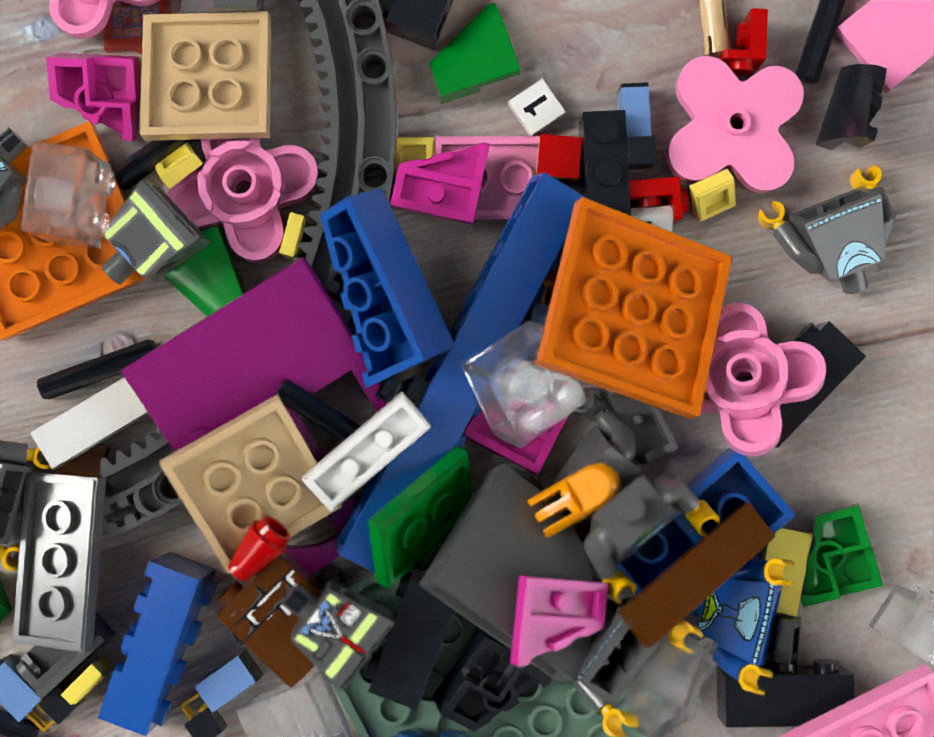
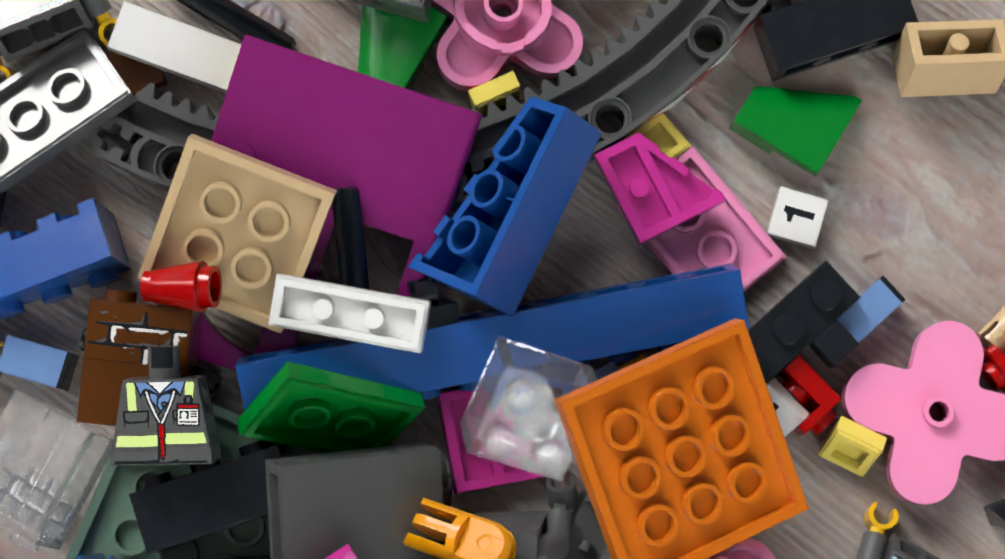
camera: 55 degrees right, 5 degrees down
(559, 156) = (768, 274): red tile -> none

